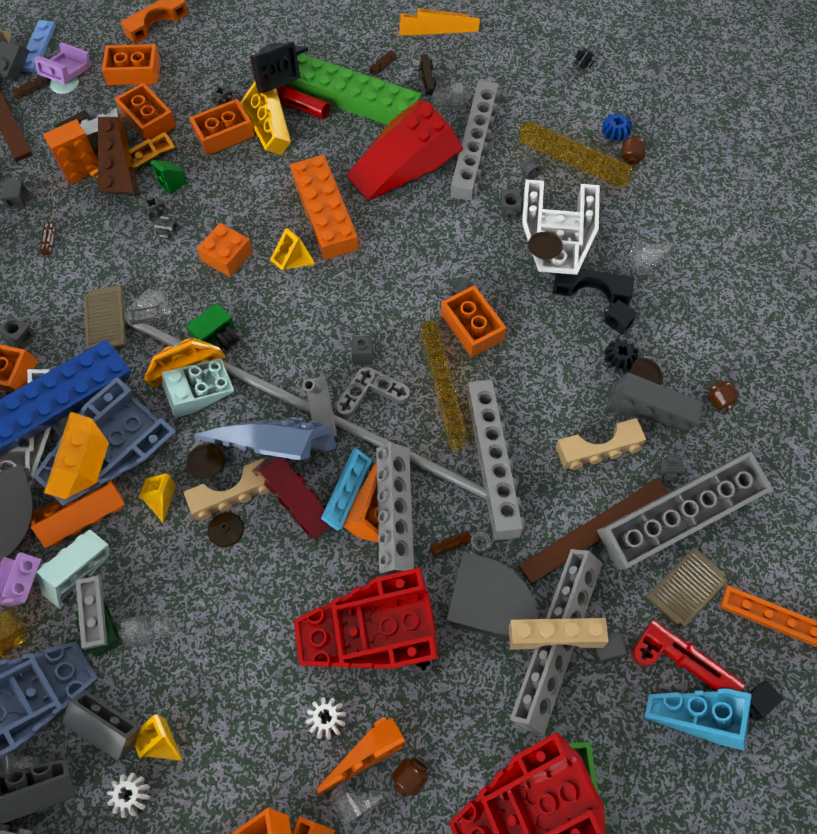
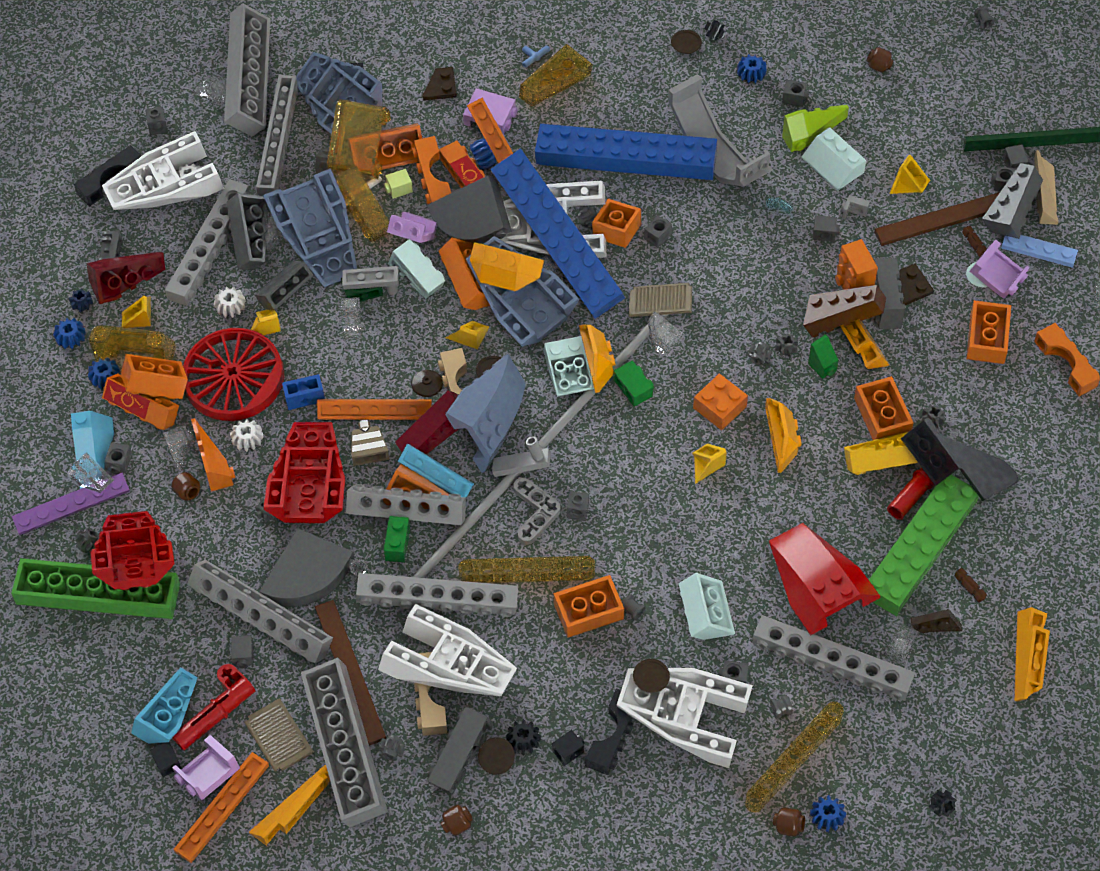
camera: 100 degrees right, 5 degrees down
(47, 238) = (766, 256): reddish brown axle -> none
(145, 112) = (914, 341): orange brick -> none
(227, 337) = (617, 396): black wheel -> none
(254, 198) = (782, 432): none -> light orange wedge
(259, 660) = (303, 391): none -> blue brick
(259, 705) = (234, 374): none -> red piece
(271, 577) = (372, 409): none -> orange plate
(318, 571) = (368, 444): none -> dark tan torso
(324, 207) = (760, 494): orange brick -> none
(434, 512) = (397, 539): none -> green brick
(450, 234) = (706, 607): none -> light aqua slope
(450, 543) = (368, 552): reddish brown axle -> none
(545, 632) = (253, 616): tan arch -> none
(566, 410) = (458, 660): none -> white wedge
(648, 256) = (636, 795): clear arch -> none
(760, 649) = (207, 769): none -> lavender panel
(763, 550) = (292, 808): none -> light orange wedge

